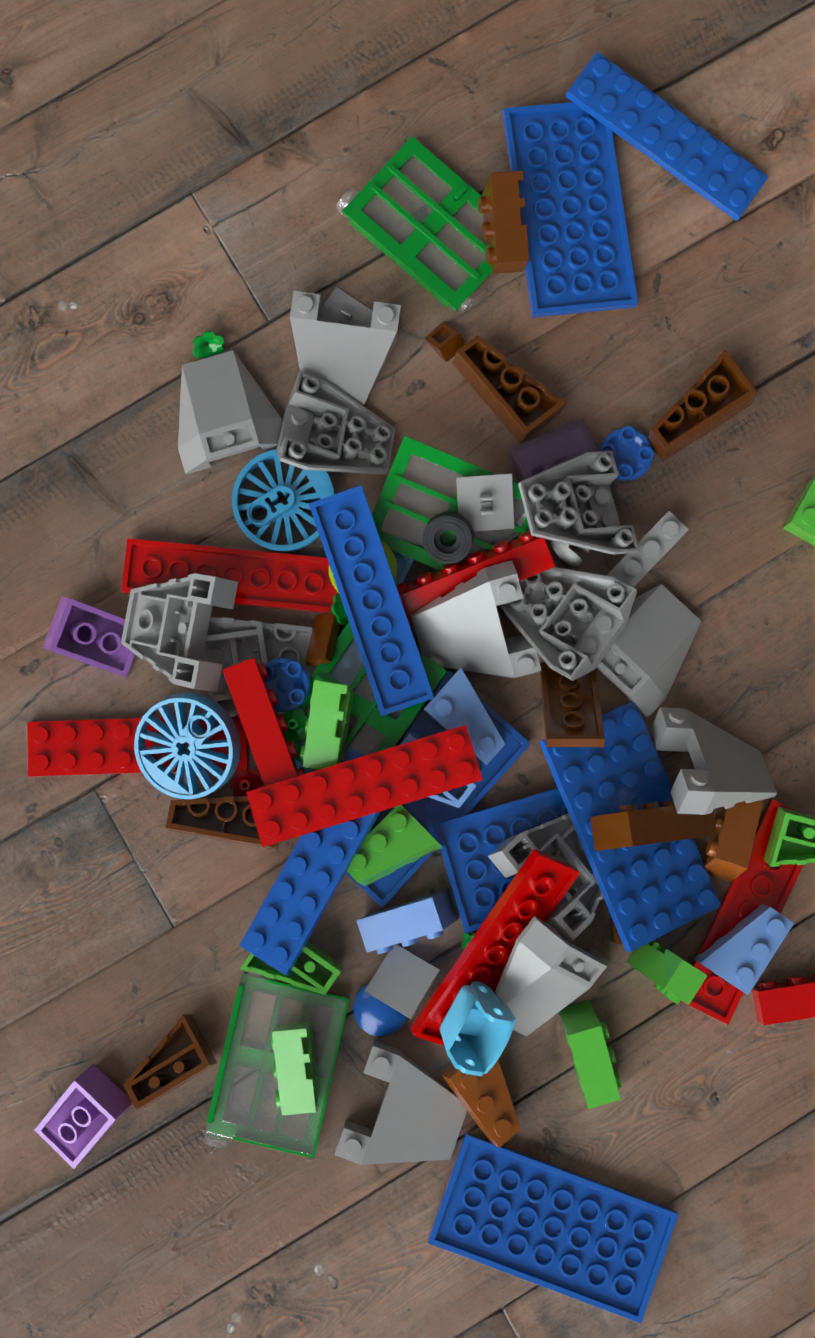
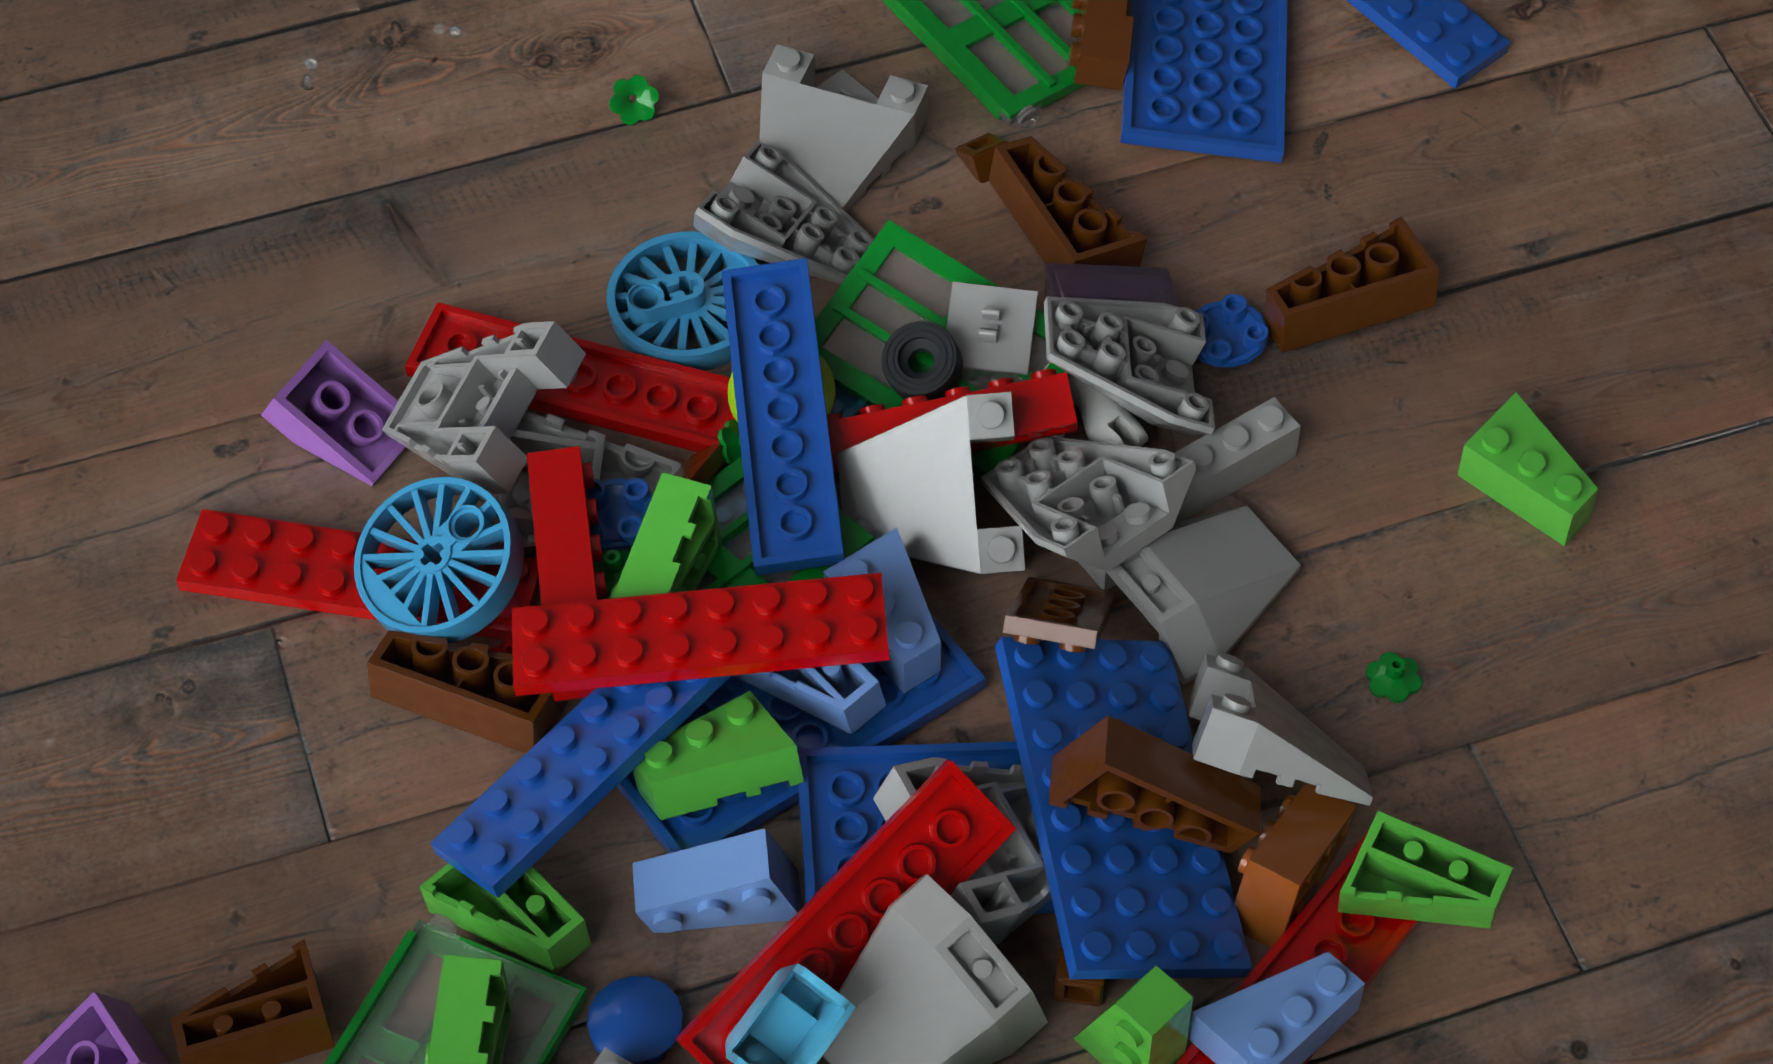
camera: 10 degrees right, 30 degrees down
(222, 412) = (624, 173): light grey wedge -> none
(402, 981) = (682, 975): light grey piece -> none
(761, 687) = (1393, 677): none -> green plant

